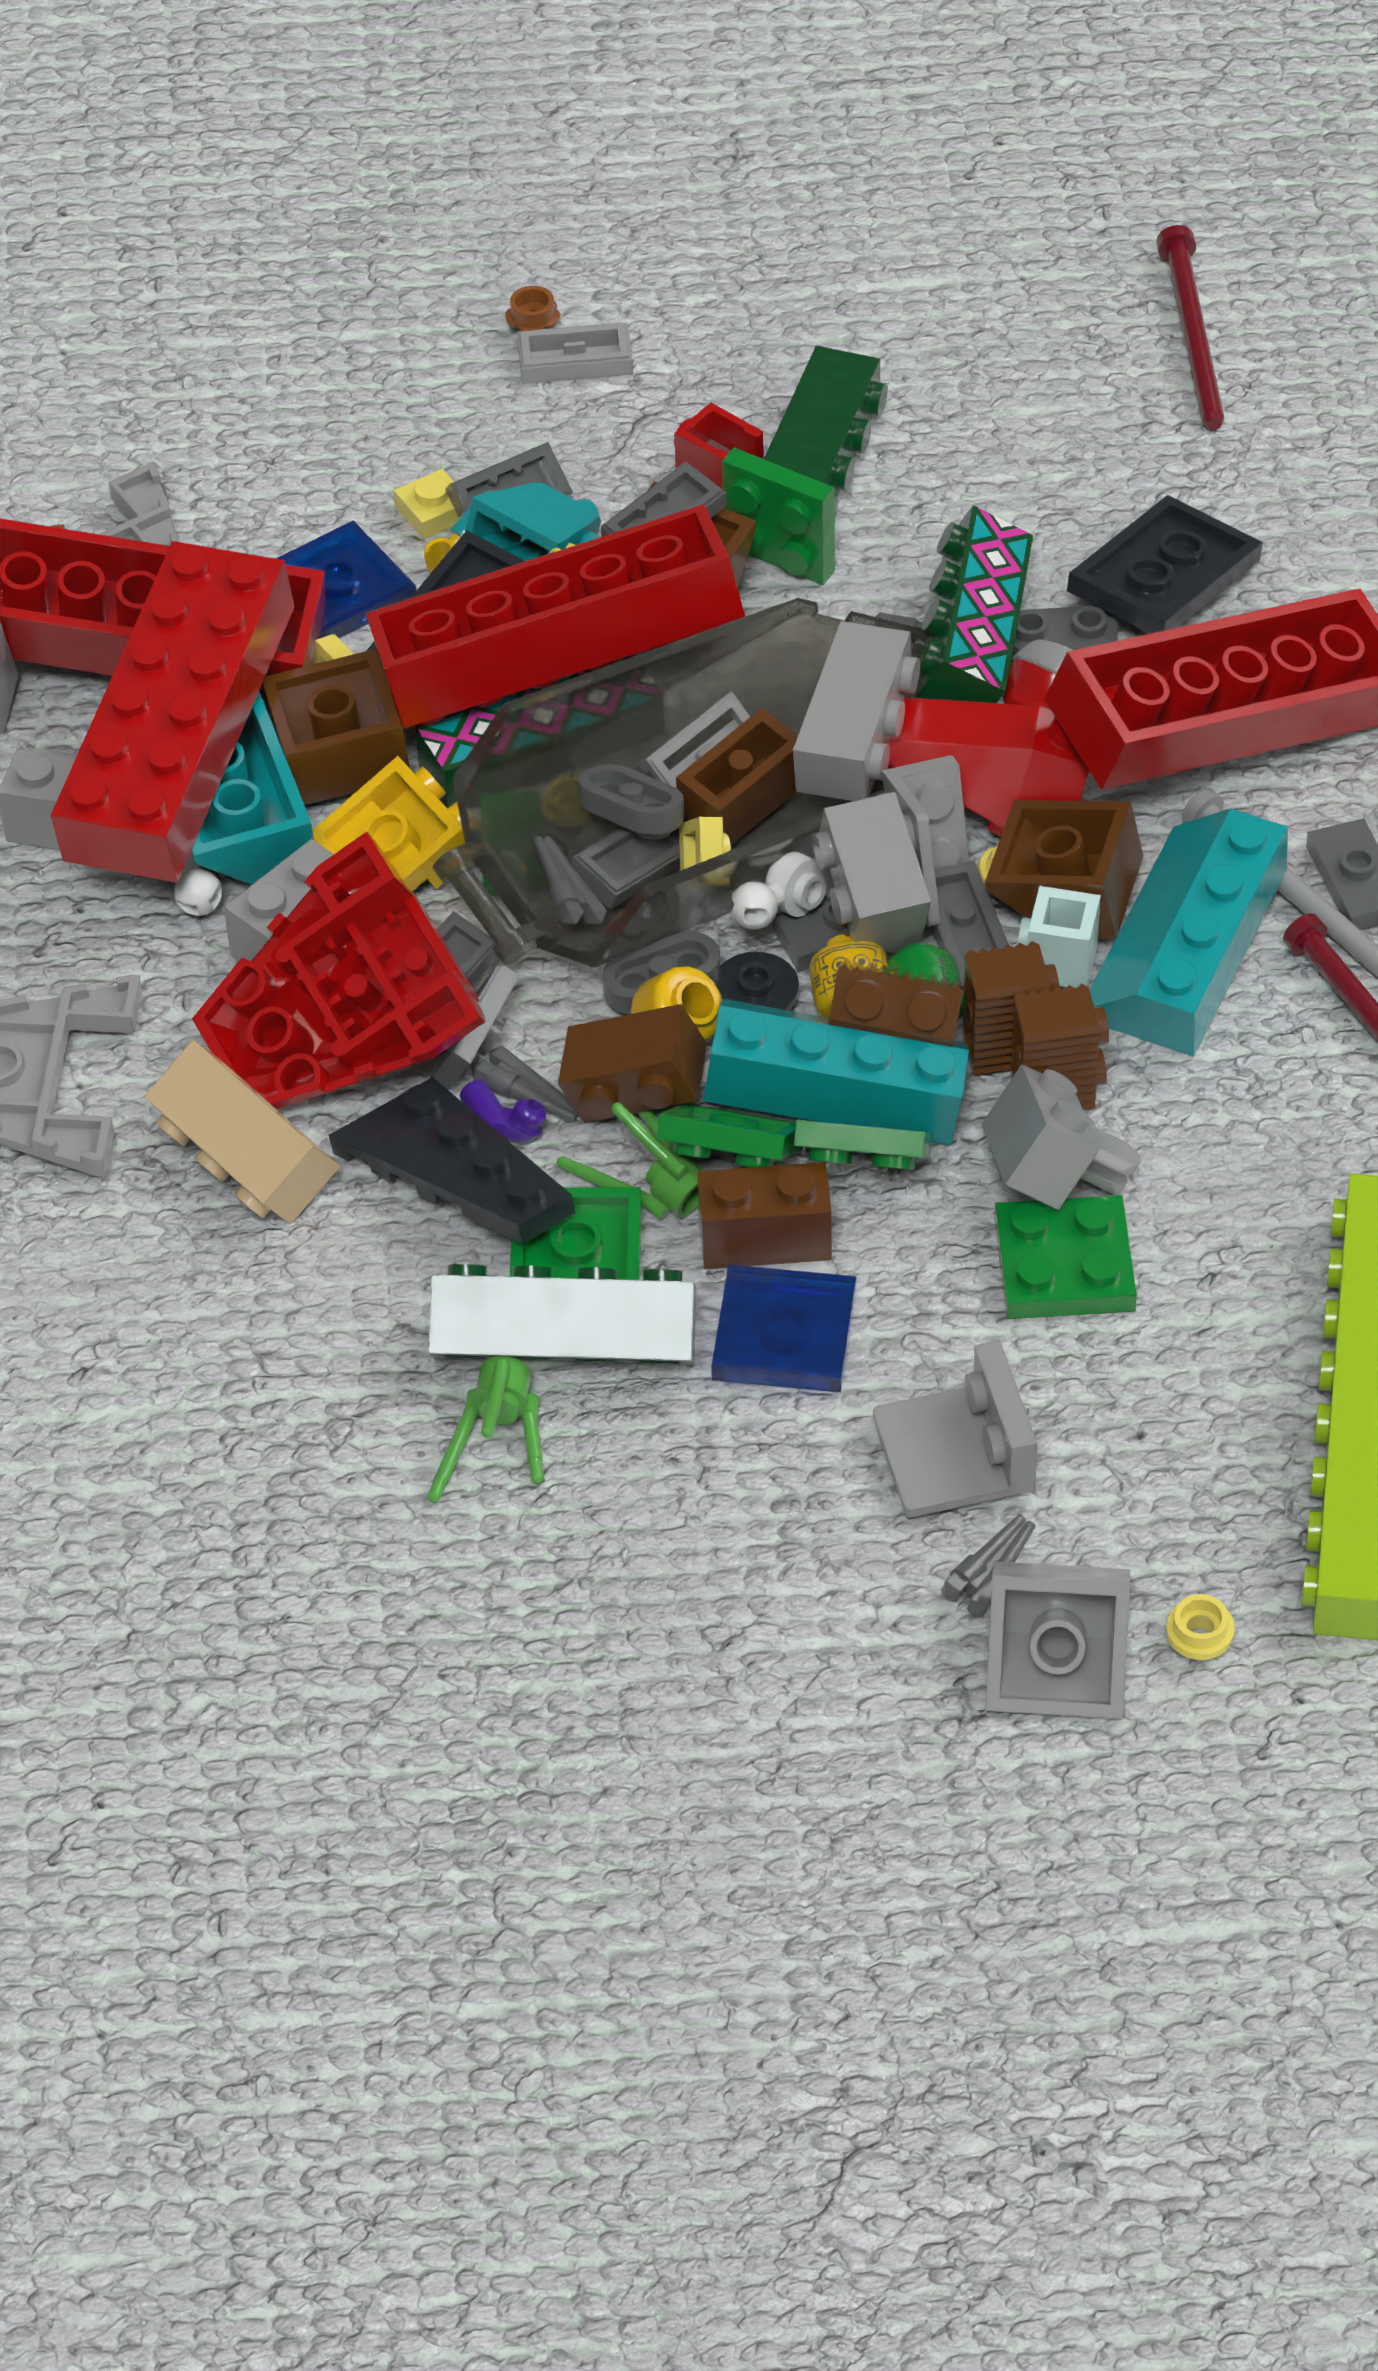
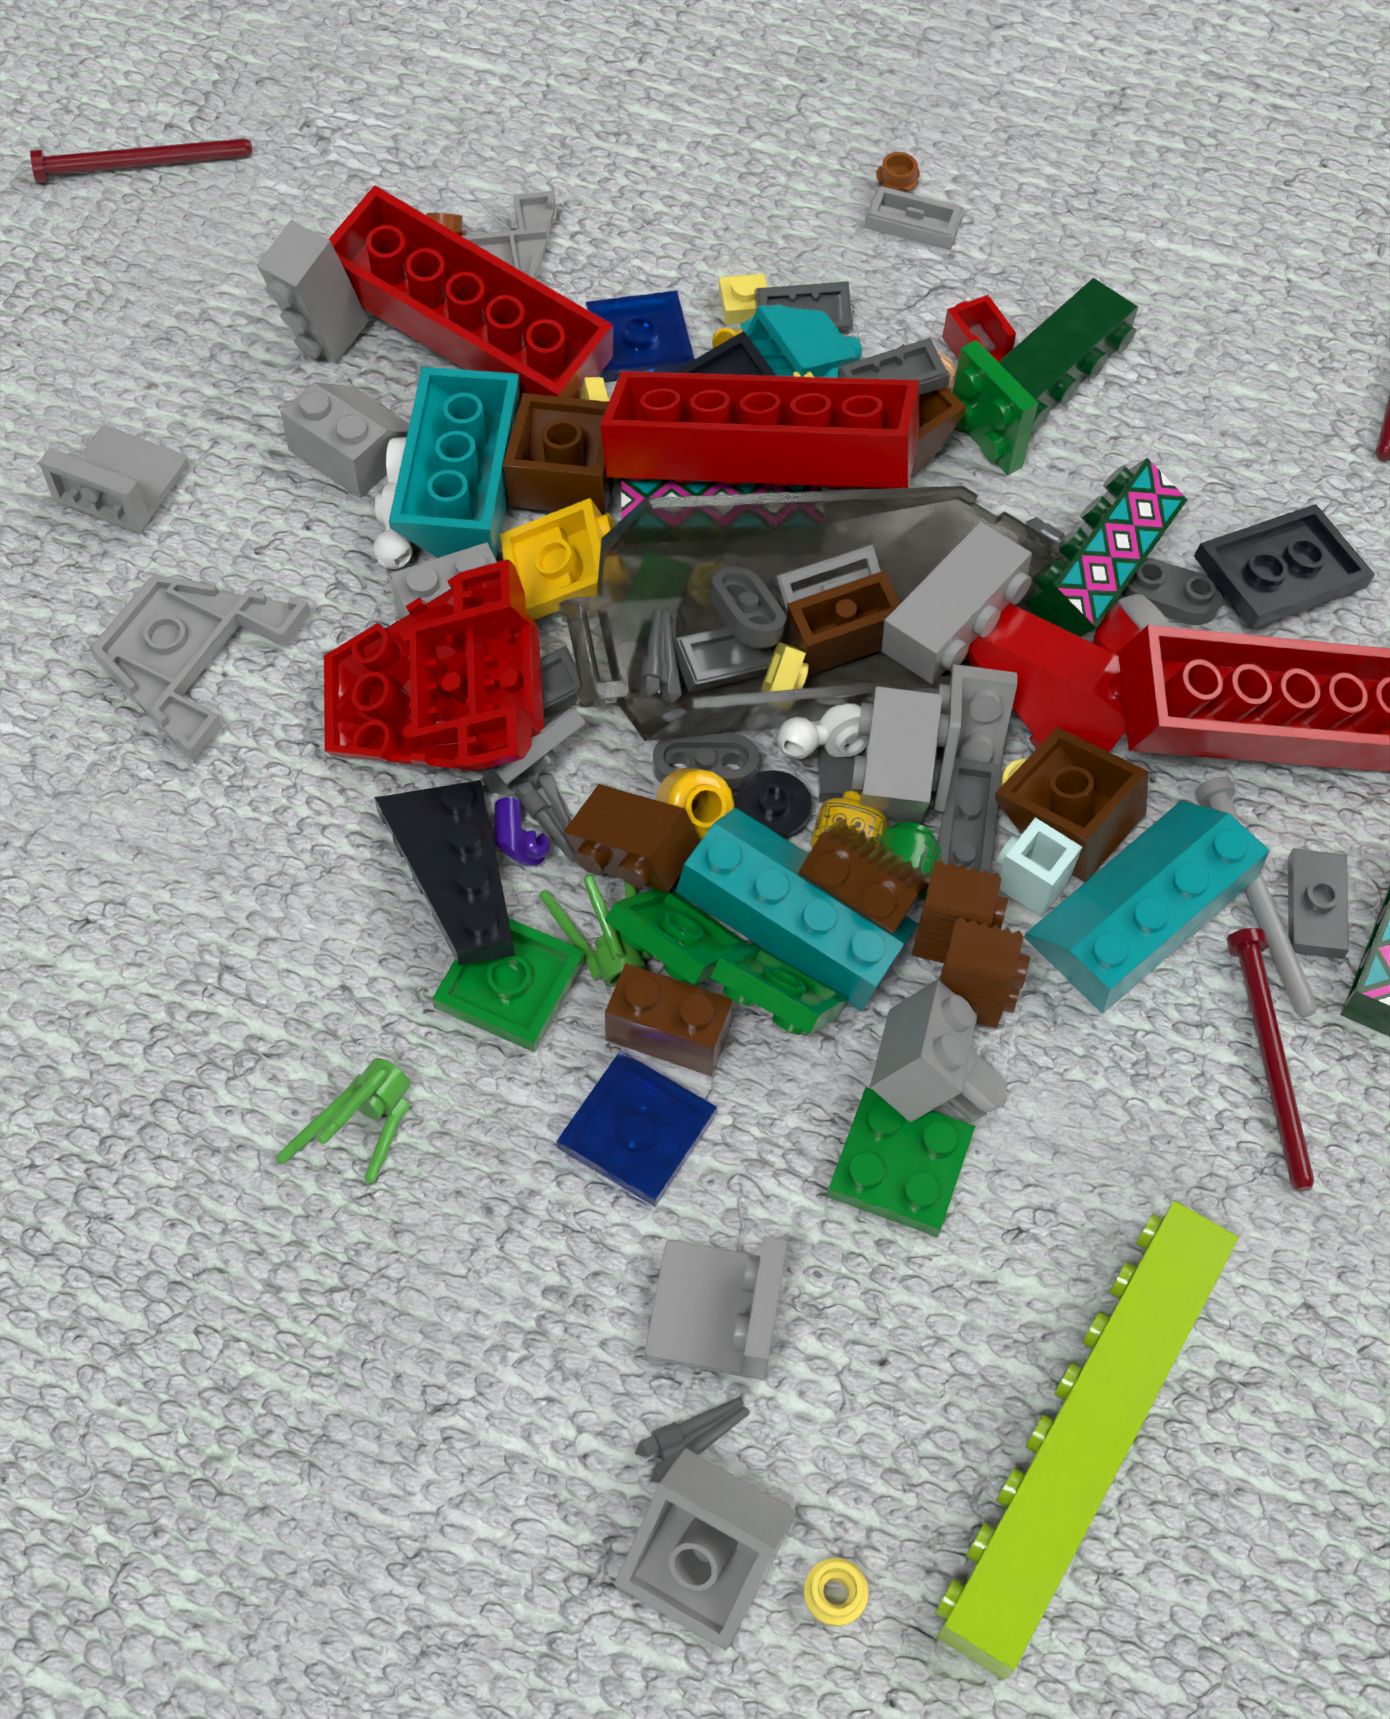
camera: 20 degrees right, 10 degrees up
(173, 712) = (426, 398): red brick -> none
(239, 1134) = (303, 771): tan brick -> none
(563, 1318) = (455, 1048): brick -> none

